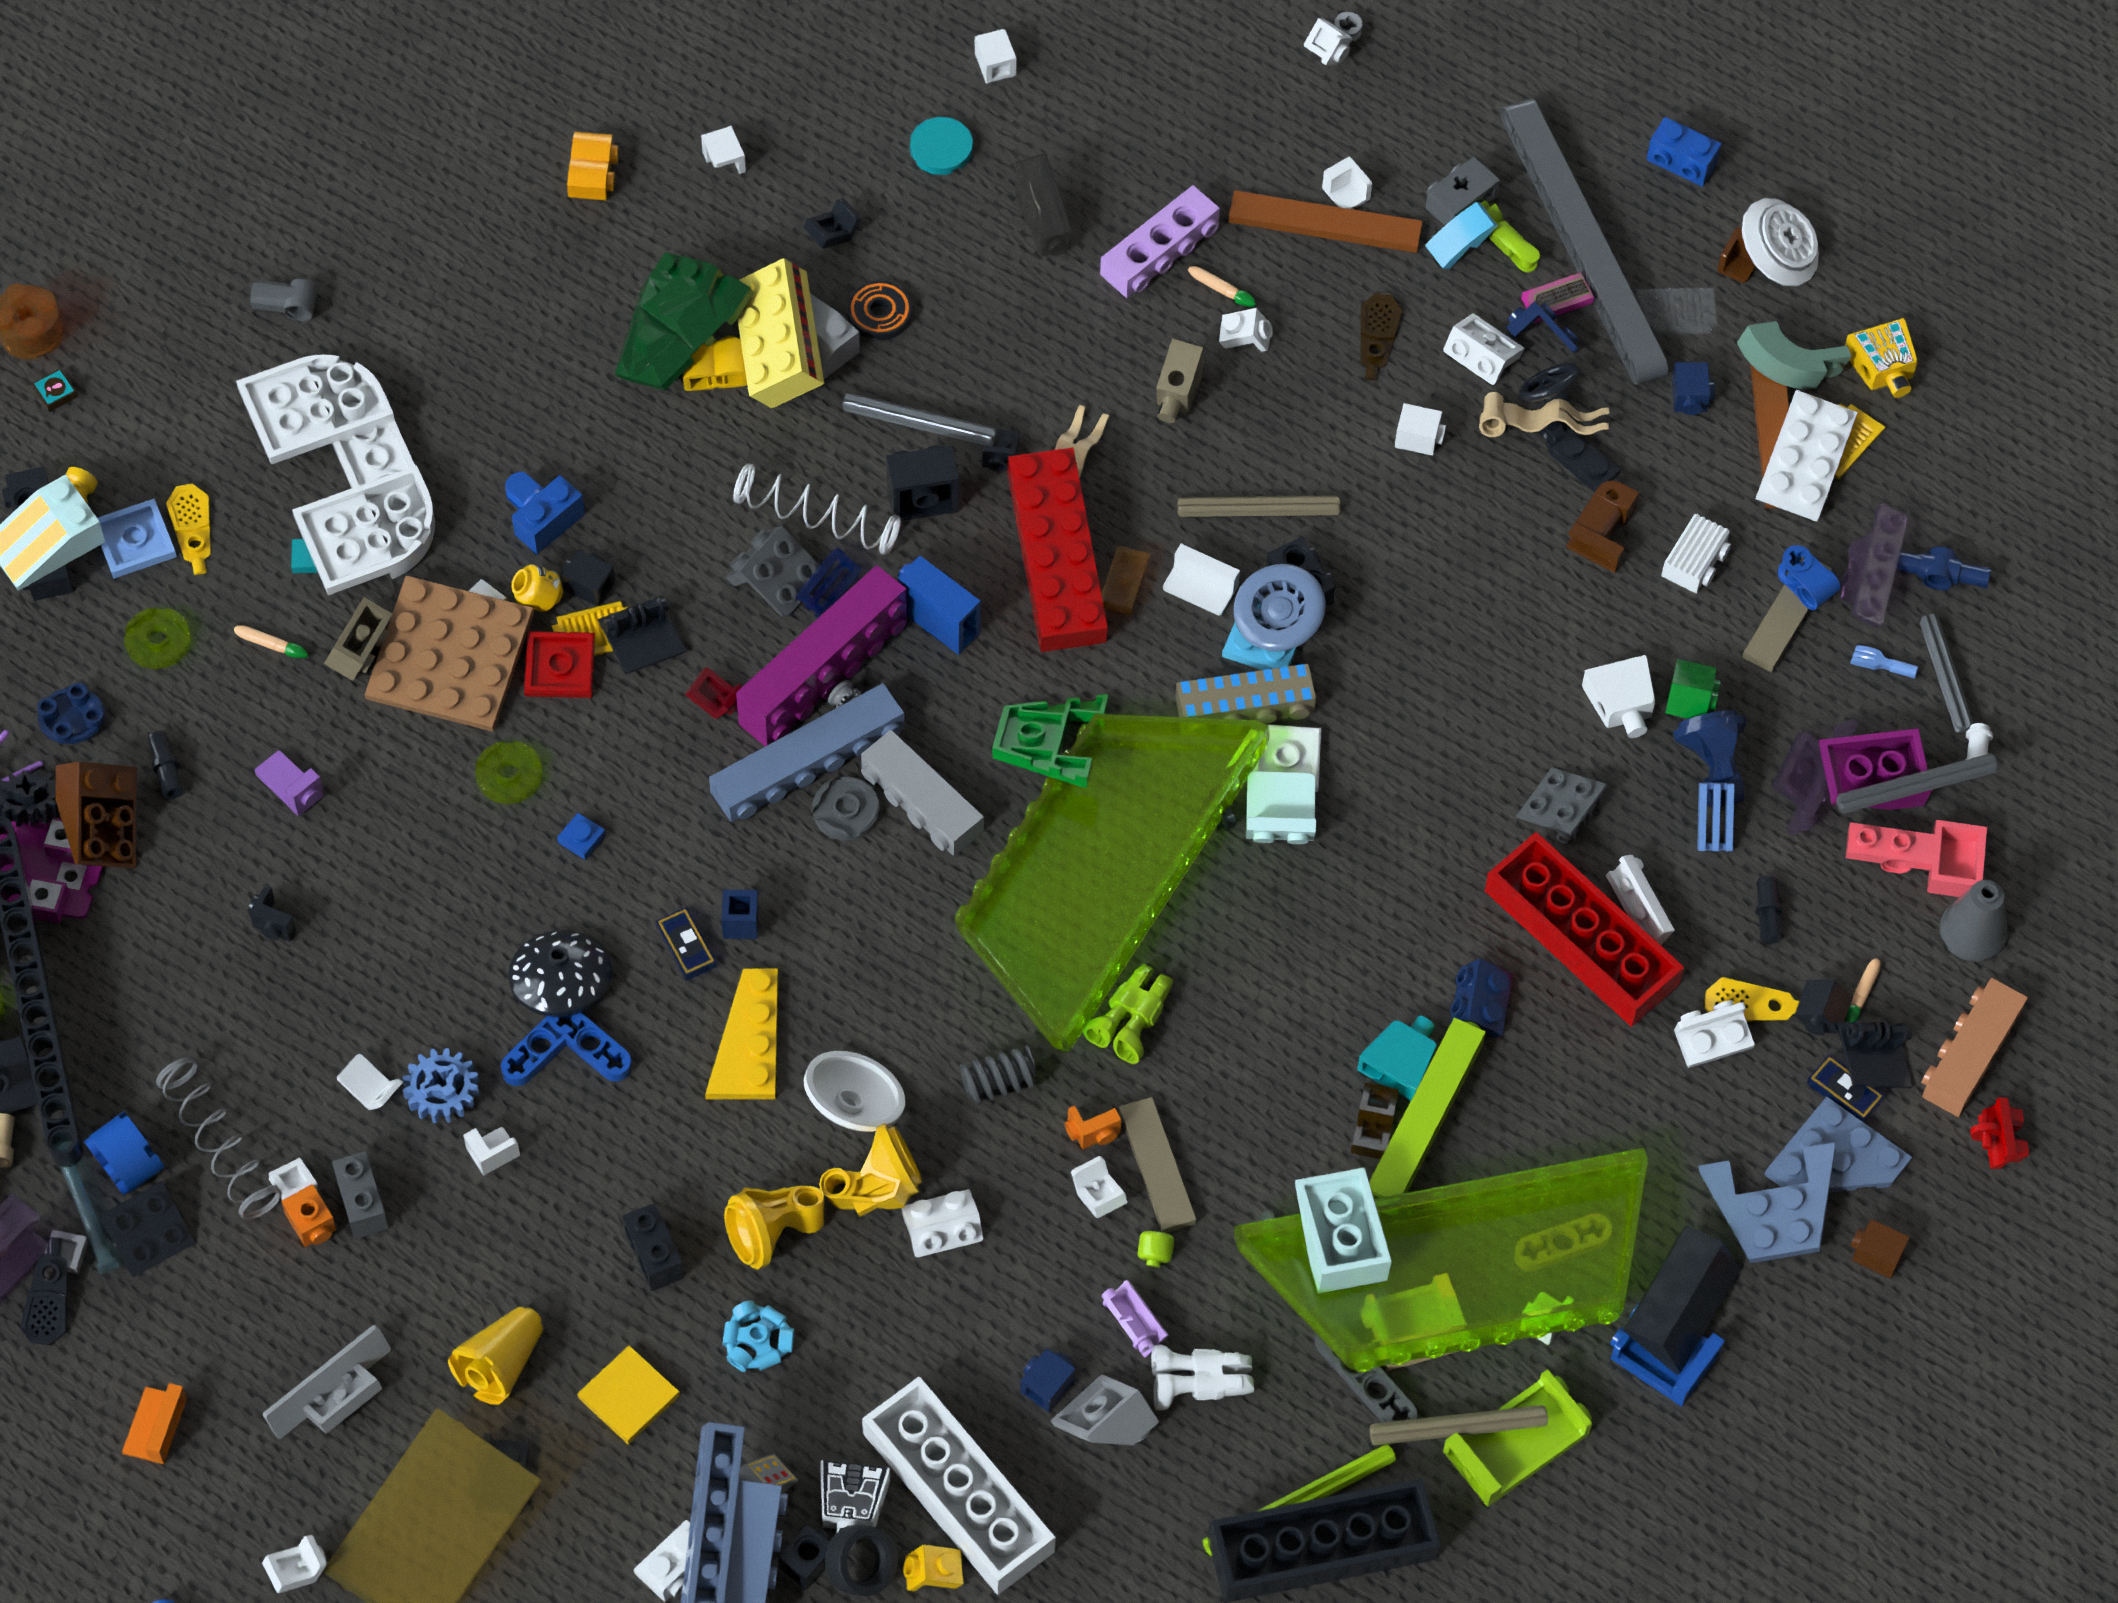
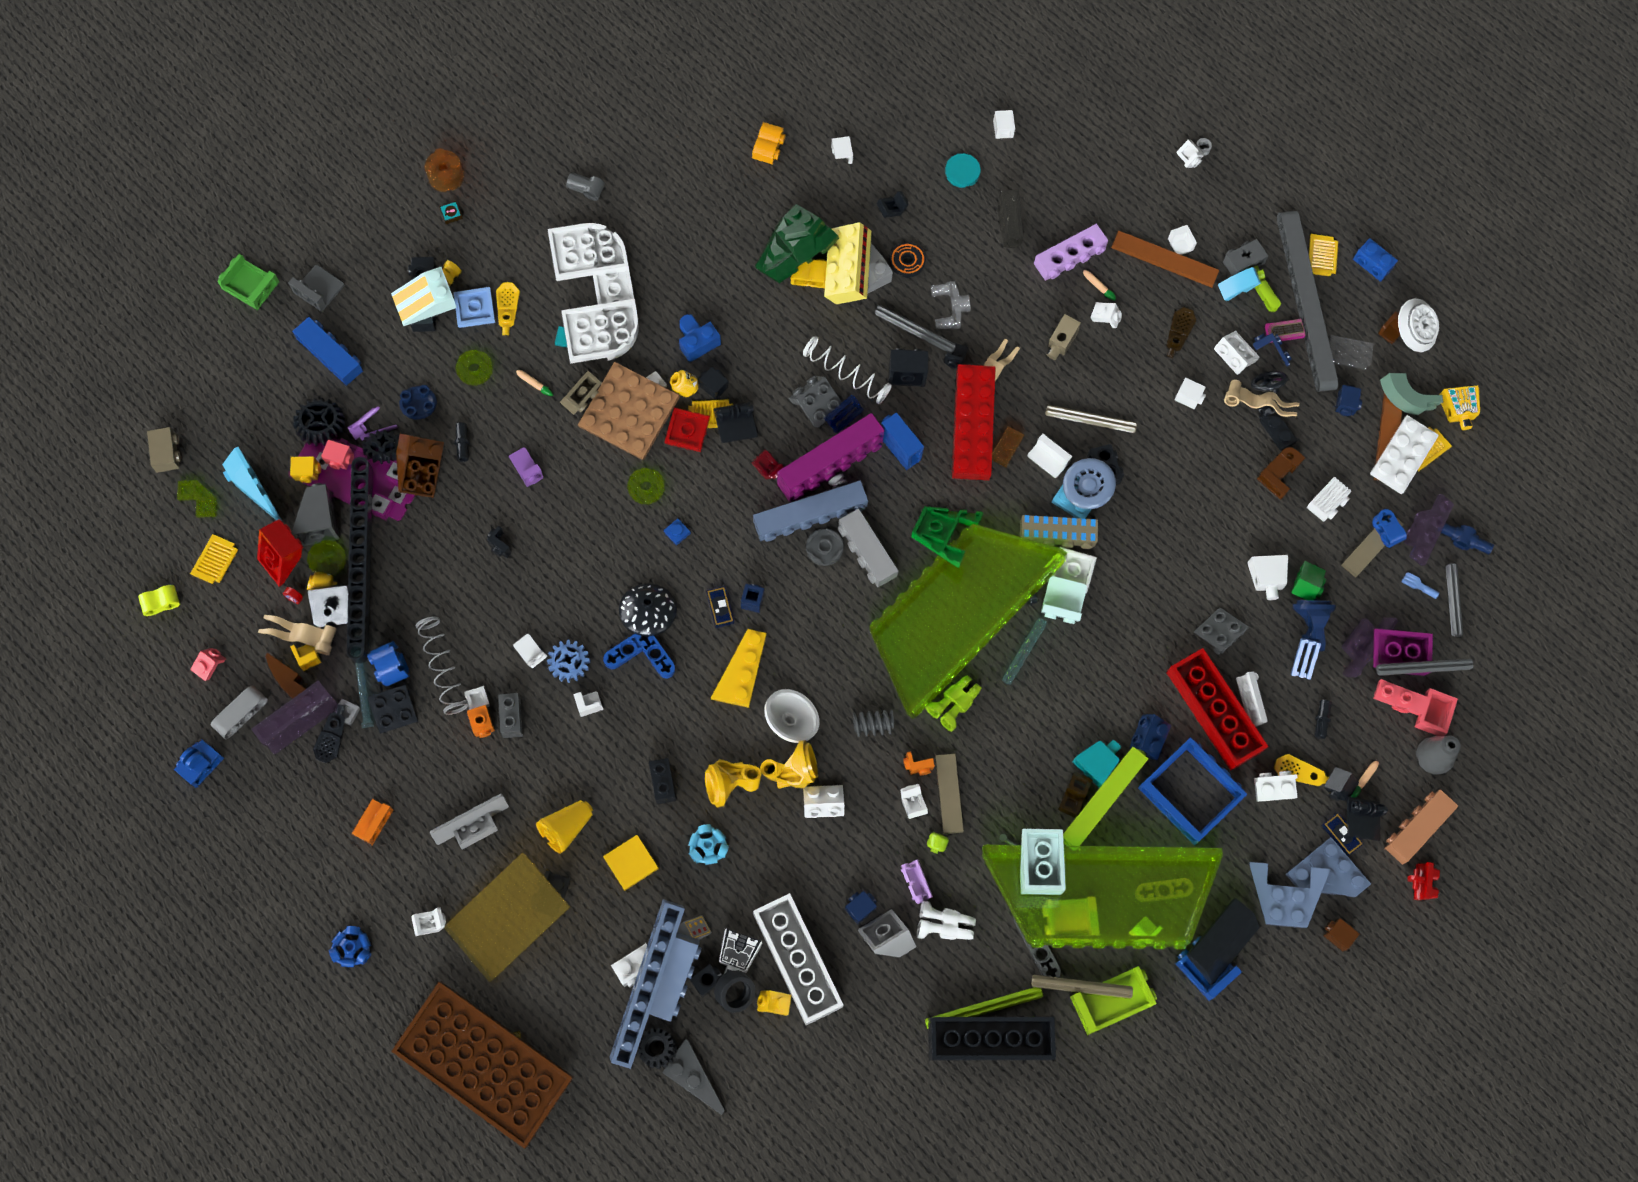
camera: 10 degrees right, 10 degrees up
(985, 363) = (958, 303): none -> clear connector
(1232, 907) = (1024, 651): none -> clear light blue axle
(1547, 1113) = (1171, 812): none -> blue window
(1594, 162) = (1323, 254): none -> yellow window
(1979, 738) = (1464, 643): white pin -> none

